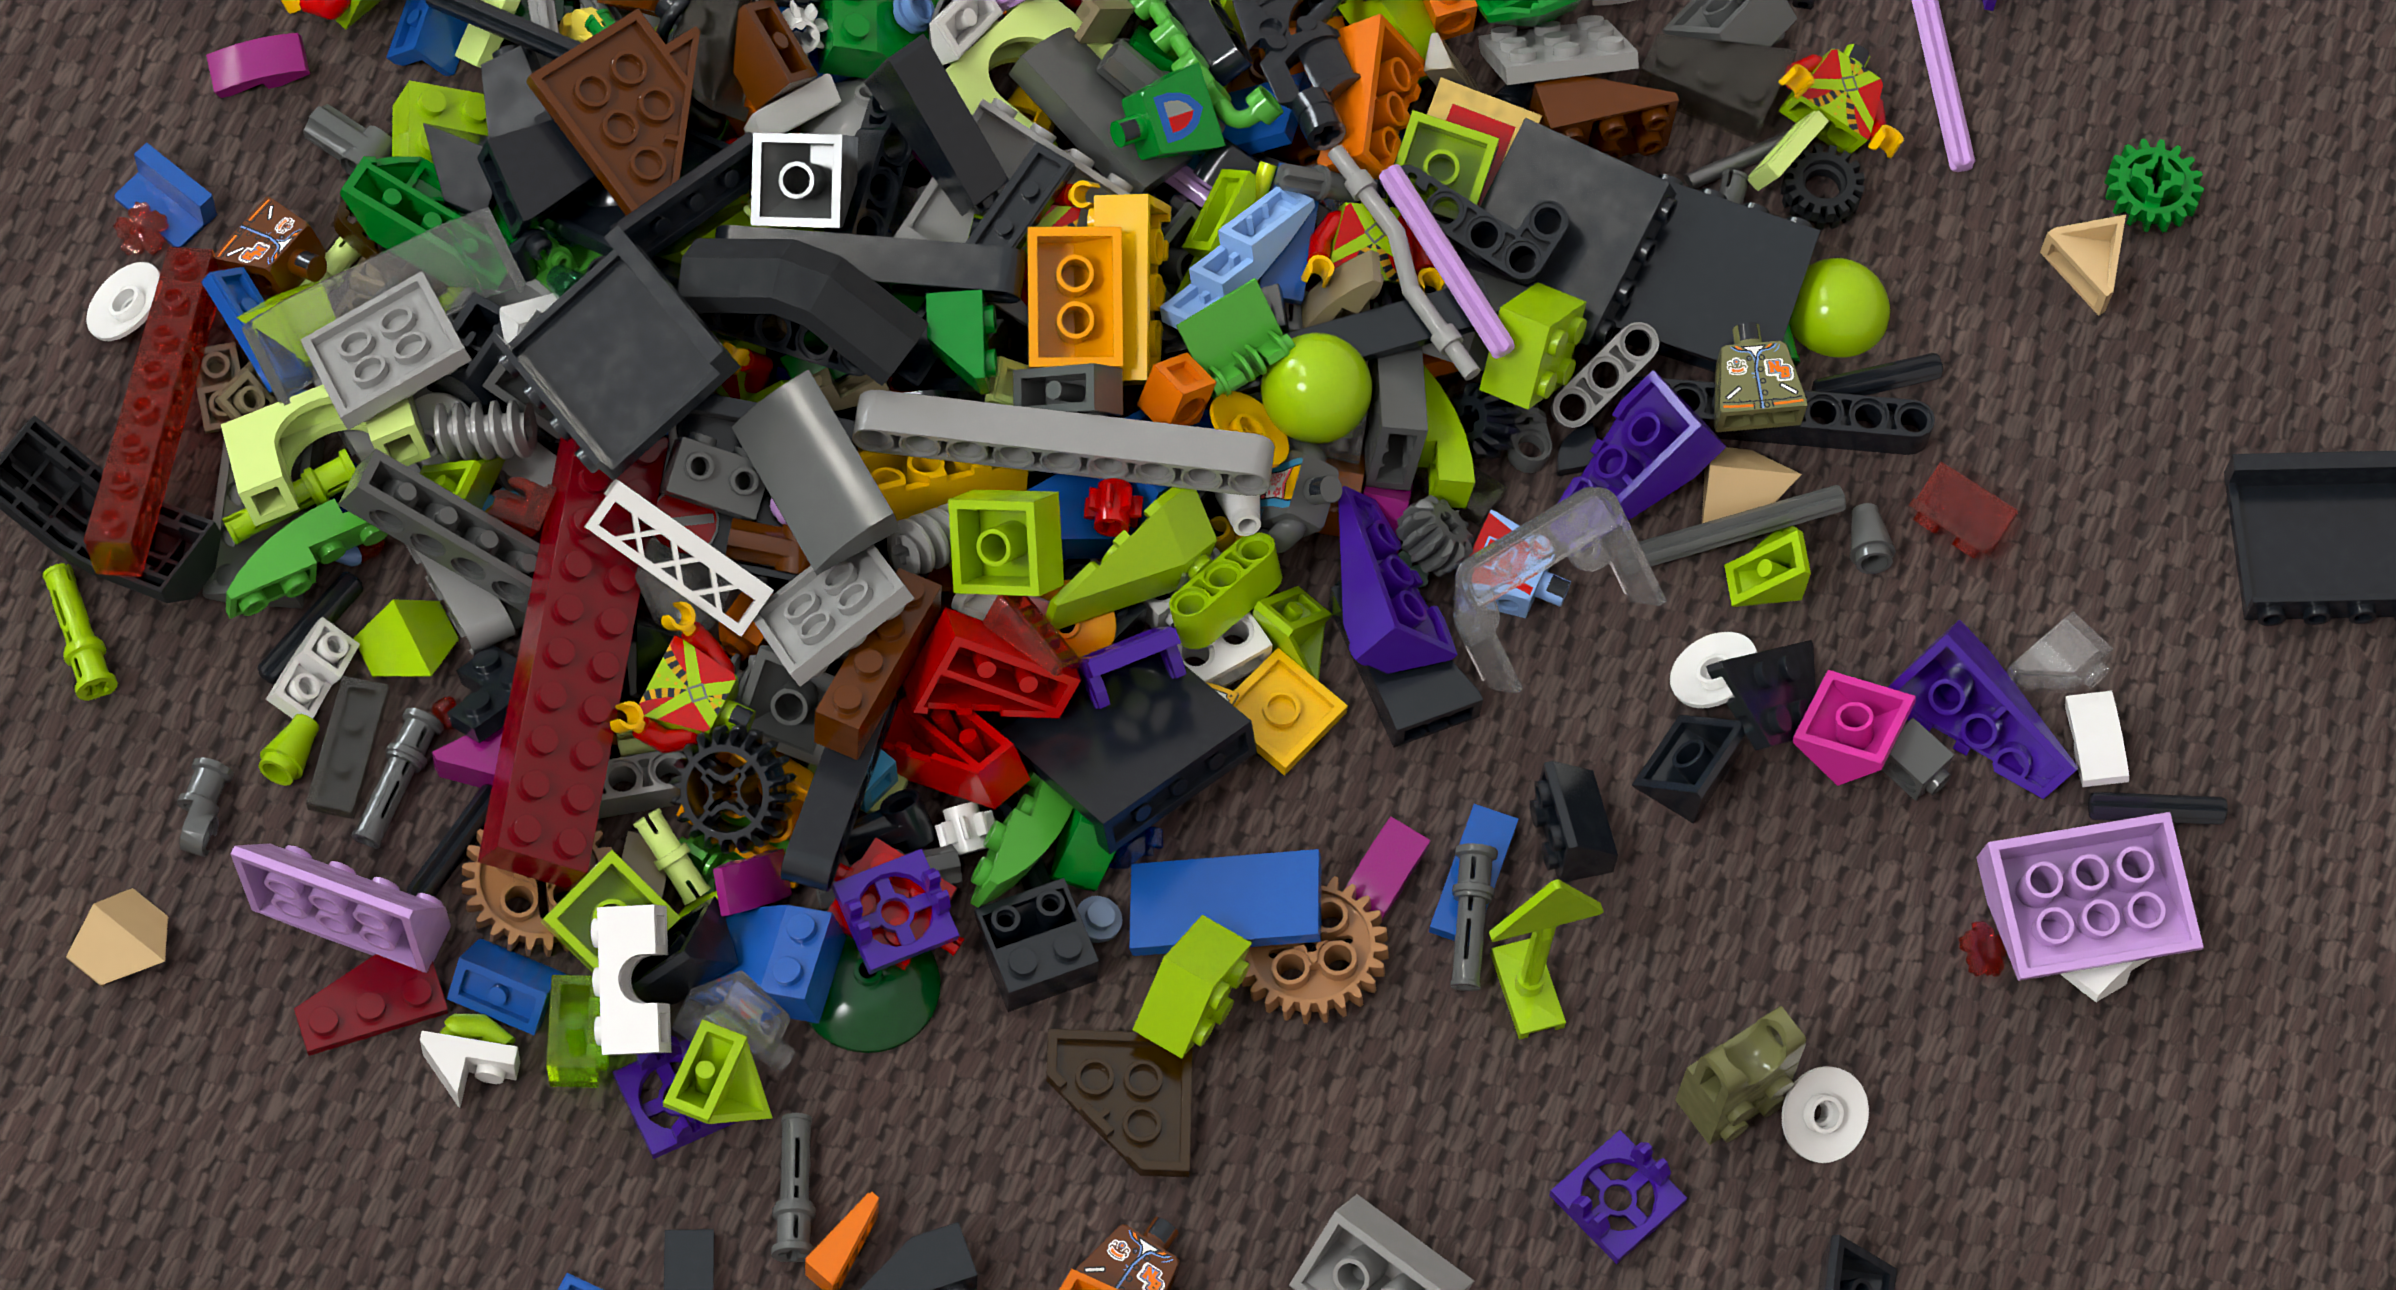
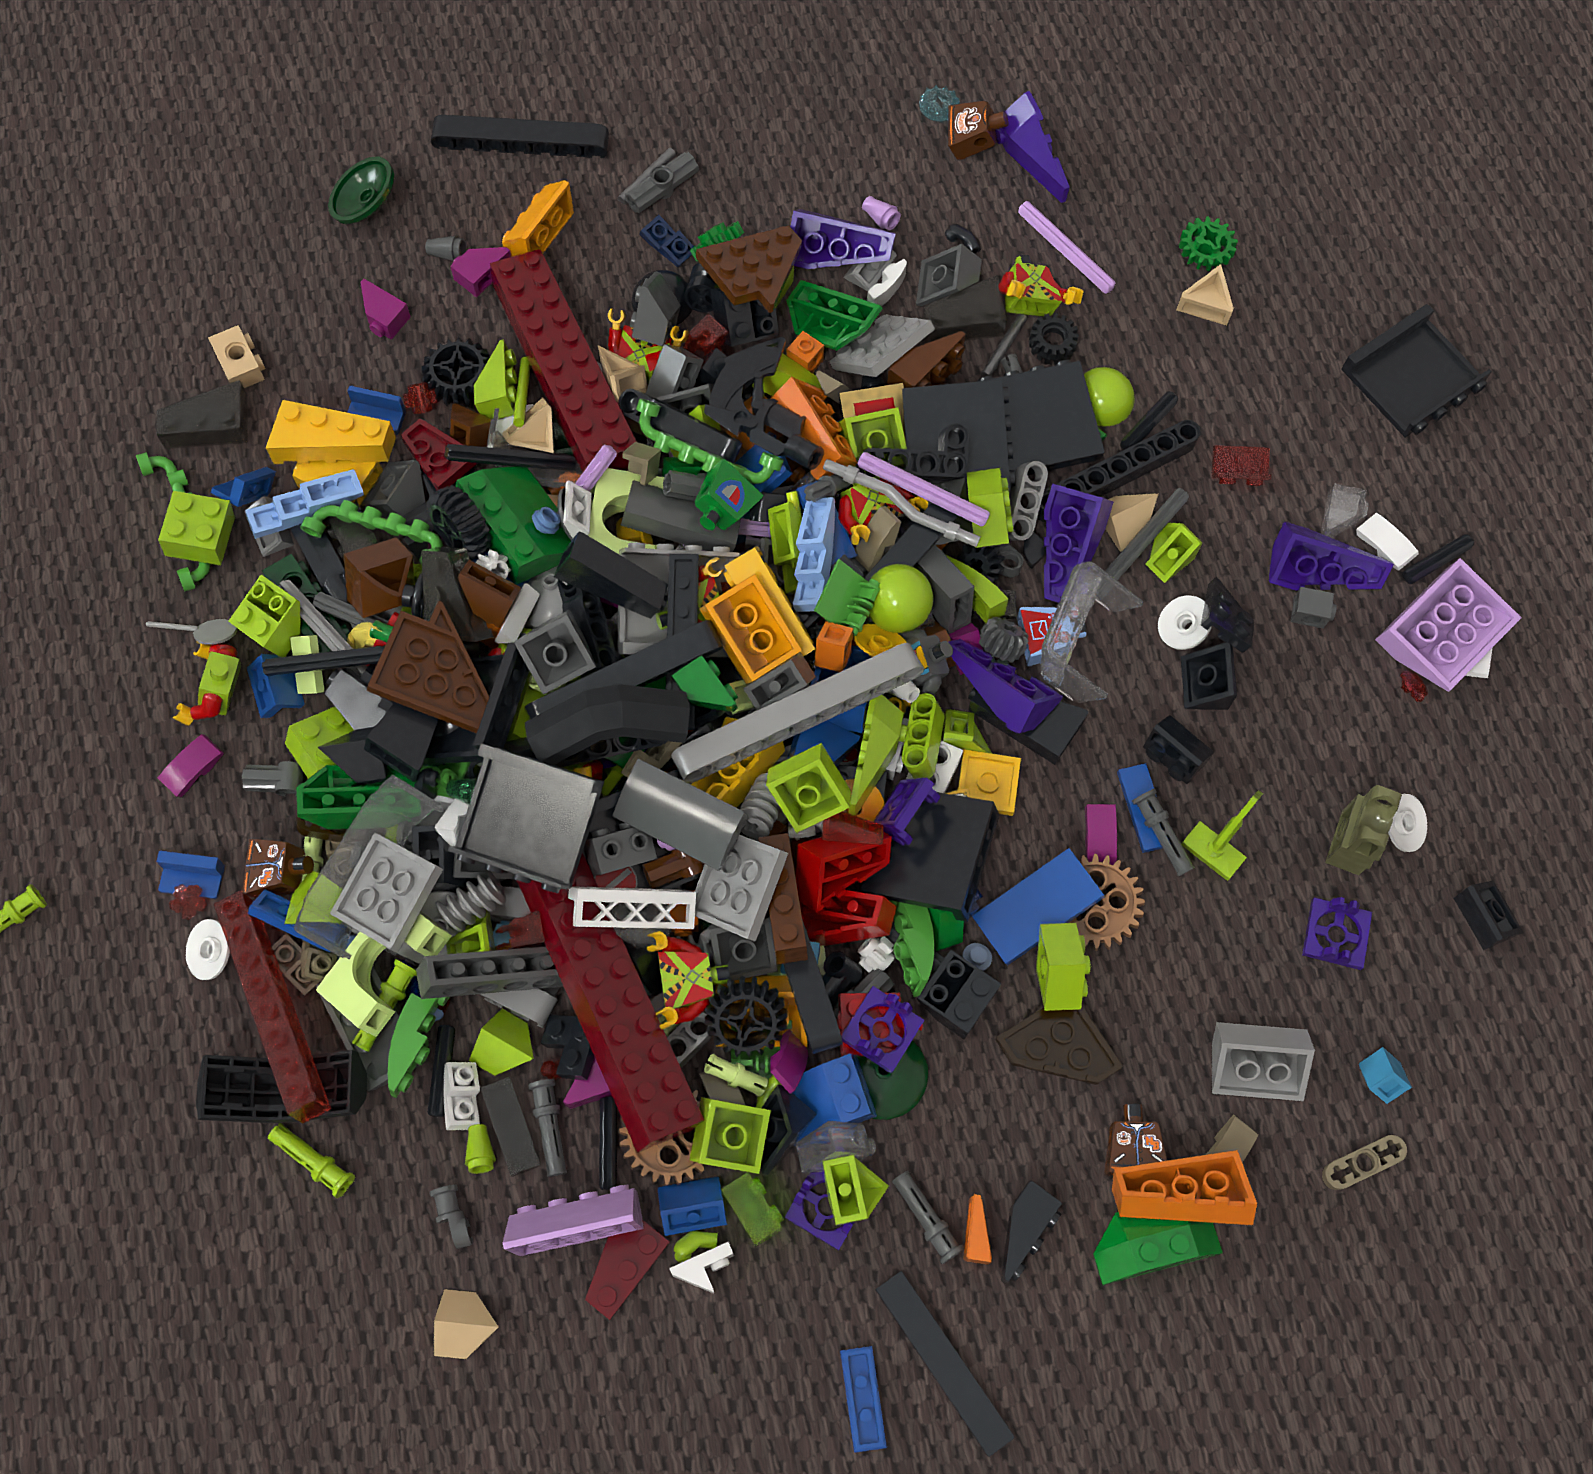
camera: 30 degrees left, 5 degrees up
(624, 939) = (785, 1190): white arch -> none
(1113, 507) = (845, 730): red gear -> none
(1756, 384) = (1105, 459): olive torso -> none
(1787, 149) = (1028, 329): yellowish green tile -> none
(1852, 726) = (1277, 609): dark pink slope -> none
(1870, 540) = (1208, 507): dark grey cone -> none

